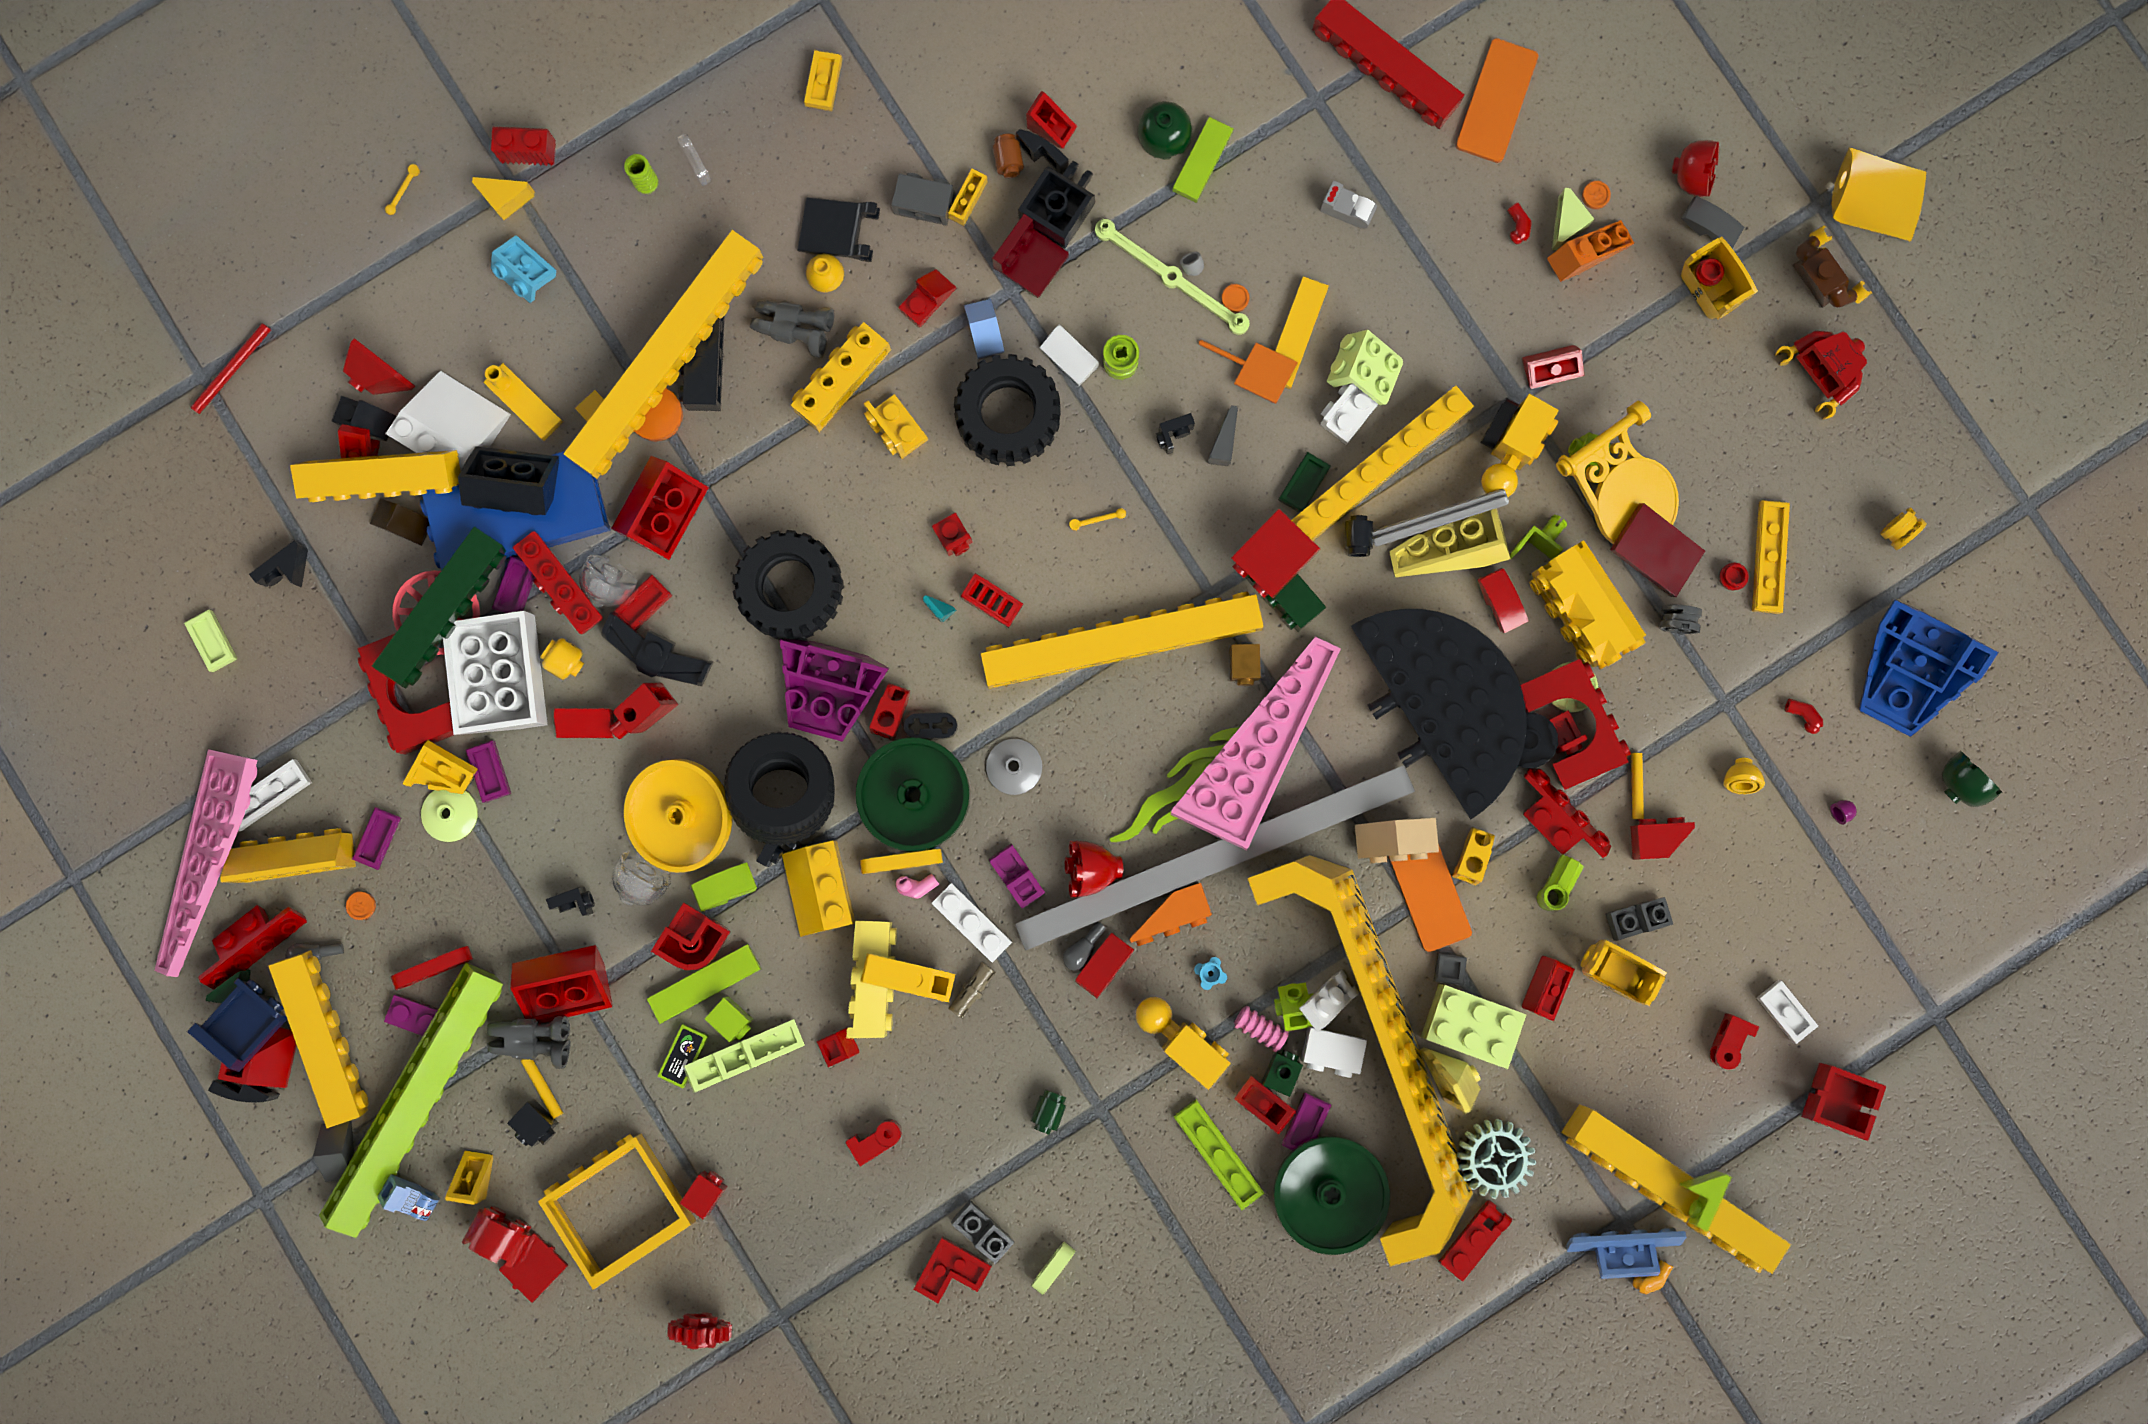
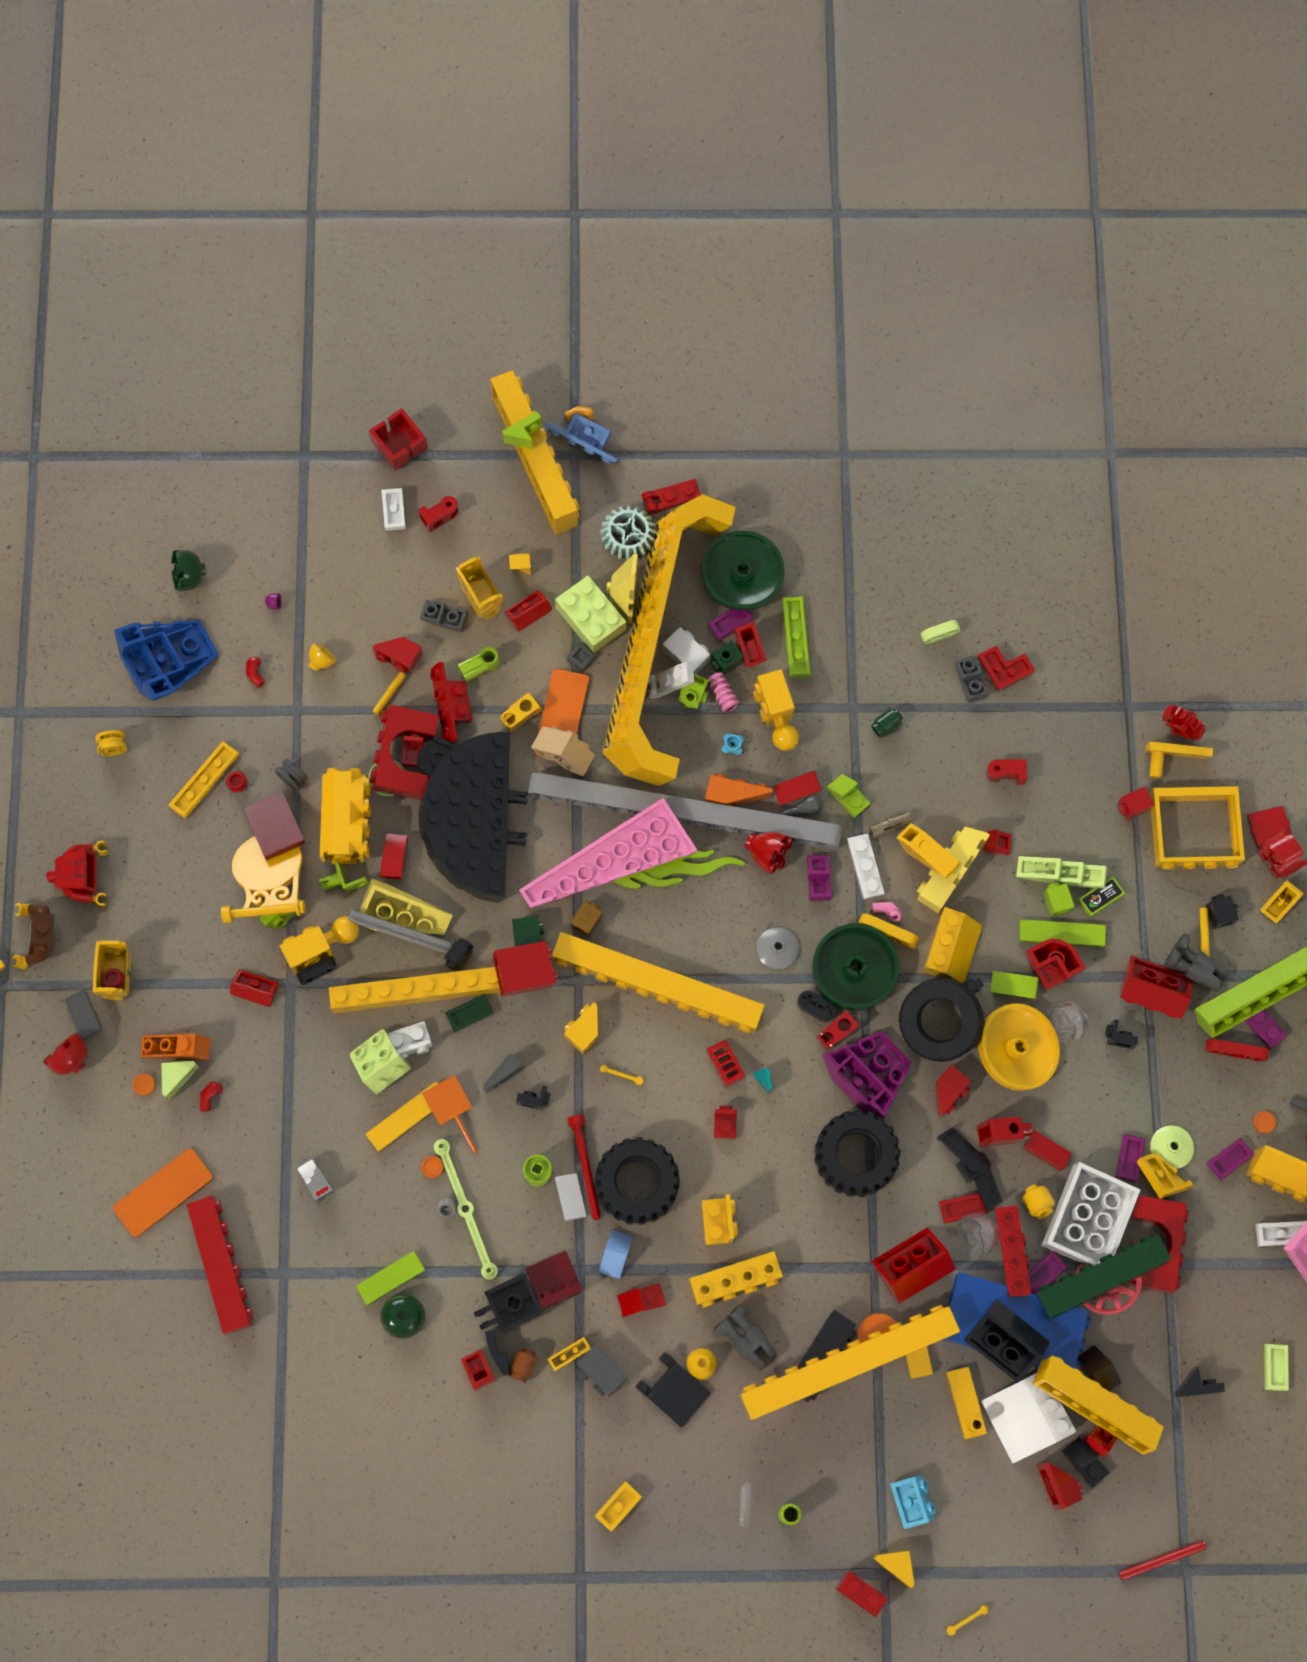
camera: 155 degrees left, 10 degrees down
(712, 1280) = (1159, 749): none -> yellow piece
(729, 723) = (950, 1087): none -> red slope
(1041, 995) = (848, 795): none -> lime slope
(1112, 435) = (577, 1124): none -> red piece
(1166, 540) = (584, 1030): none -> yellow slope
(1596, 1037) = (520, 562): none -> yellow slope

